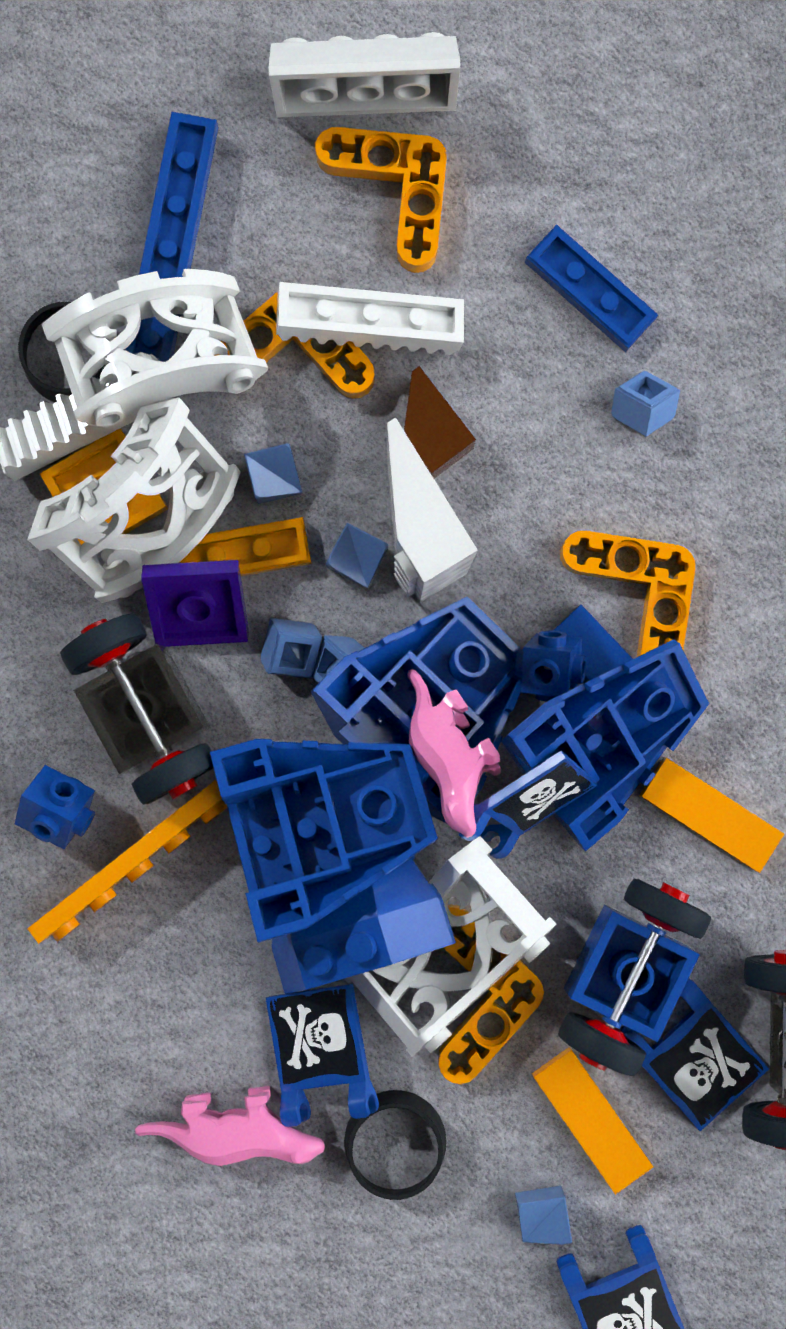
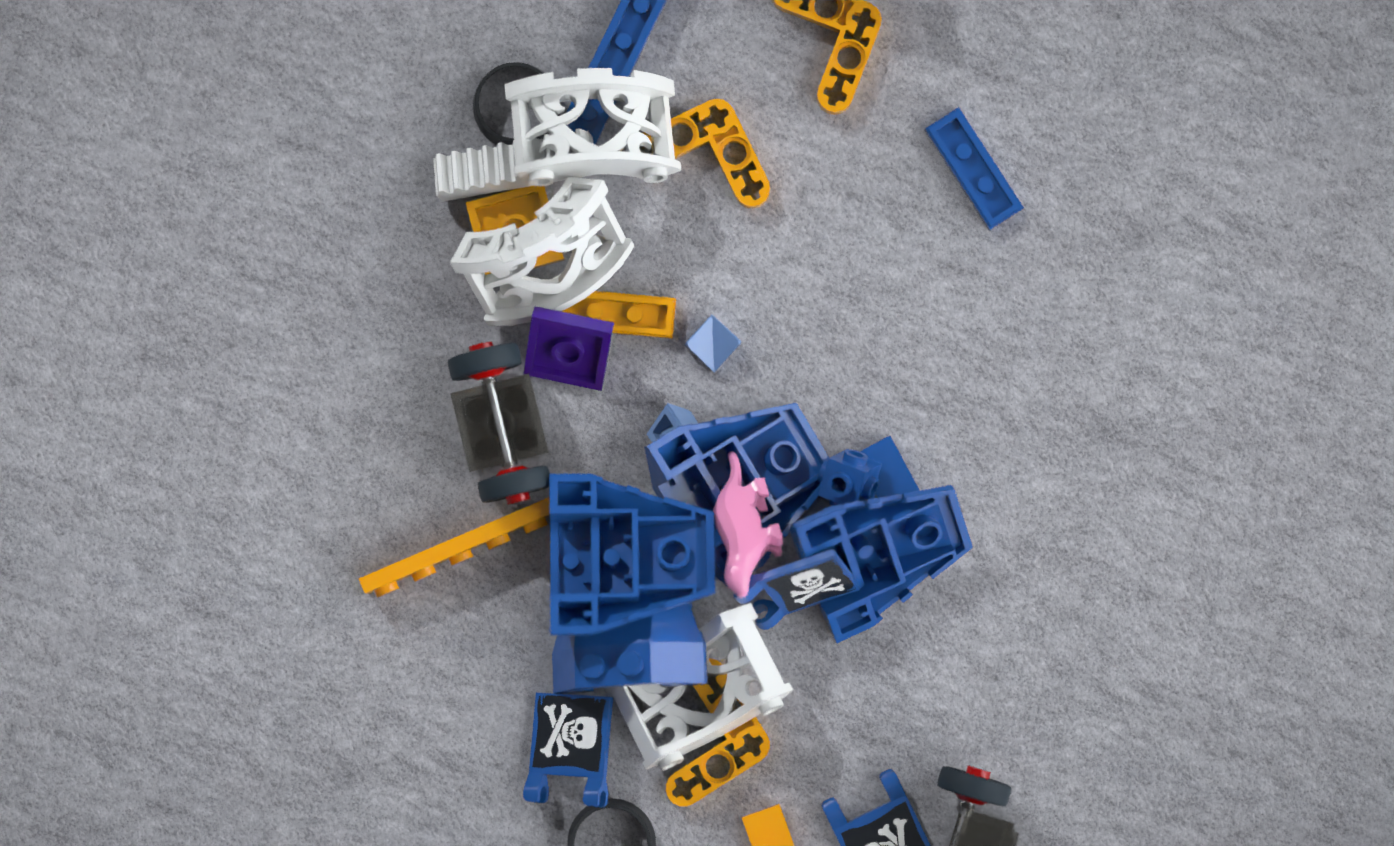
camera: 20 degrees right, 0 degrees up
(55, 807) = (406, 486): blue brick -> none
(236, 1132) = (482, 796): bright pink animal -> none
(273, 473) = (661, 255): medium blue slope -> none
(290, 648) = (636, 406): medium blue slope -> none
(369, 318) = (778, 147): white gear -> none
(428, 535) = (772, 350): white slope -> none
(434, 426) = (804, 255): reddish brown slope -> none
(631, 976) = (845, 751): brick -> none
(645, 403) = (992, 279): medium blue slope -> none
(658, 584) = (960, 438): light orange beam -> none
(712, 815) = (951, 642): light orange tile -> none

